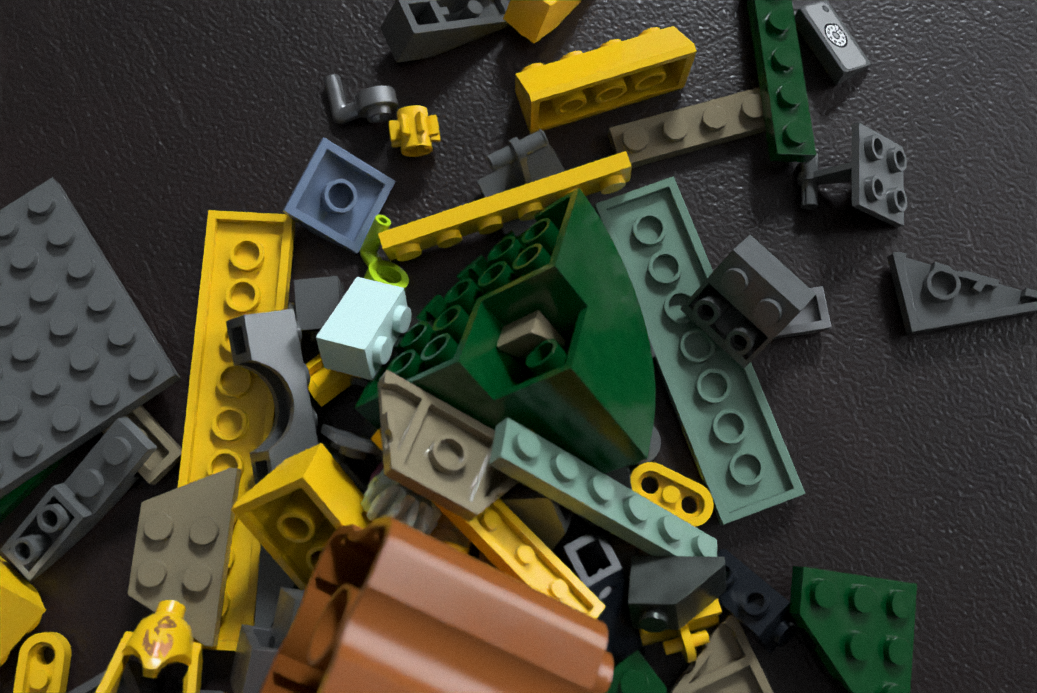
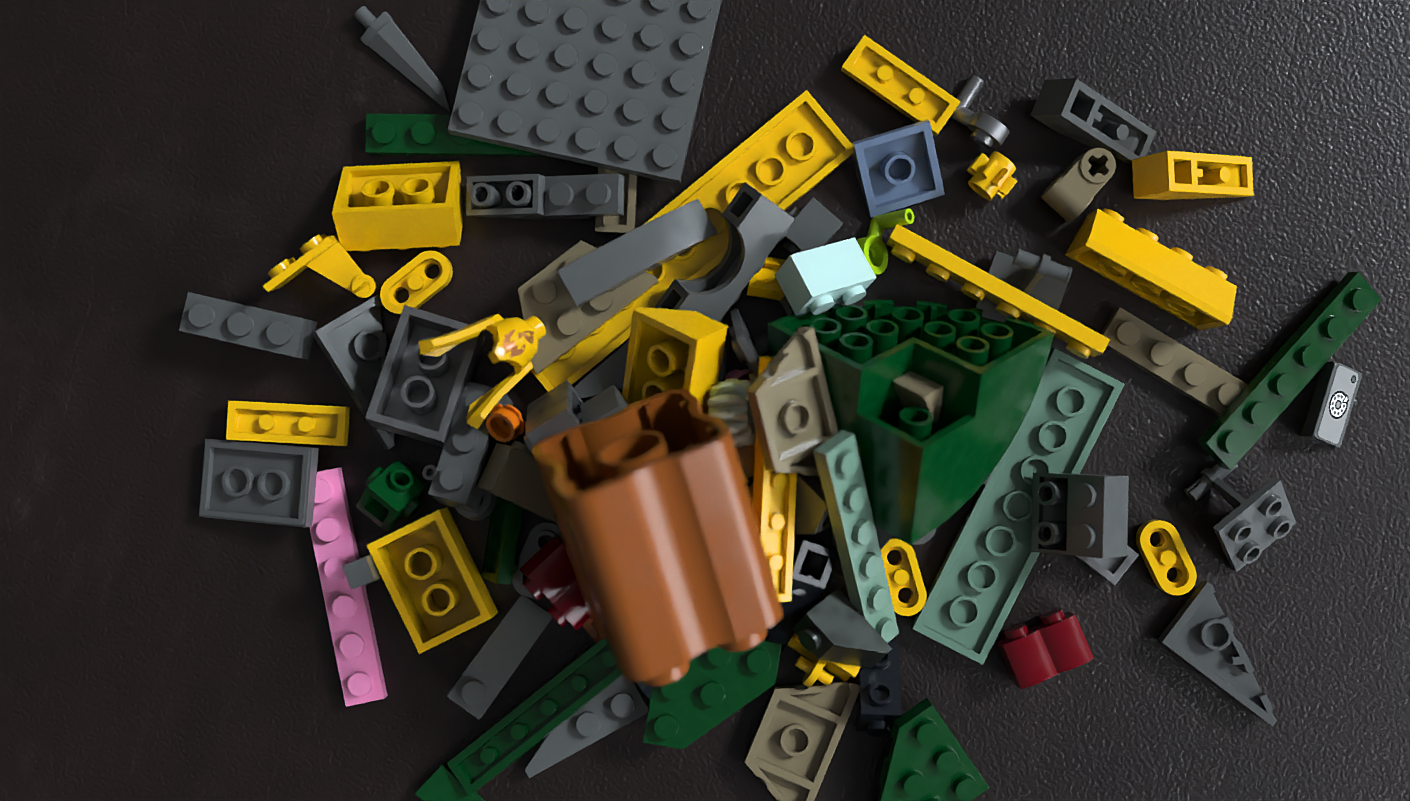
camera: 50 degrees right, 10 degrees up
(194, 465) = (637, 252): none -> dark grey slope
(275, 137) = (899, 84): none -> yellow plate
(484, 75) = (1075, 187): none -> dark tan piece
(835, 431) = (1044, 649): none -> dark red brick
(841, 267) = (1166, 554): none -> yellow plate

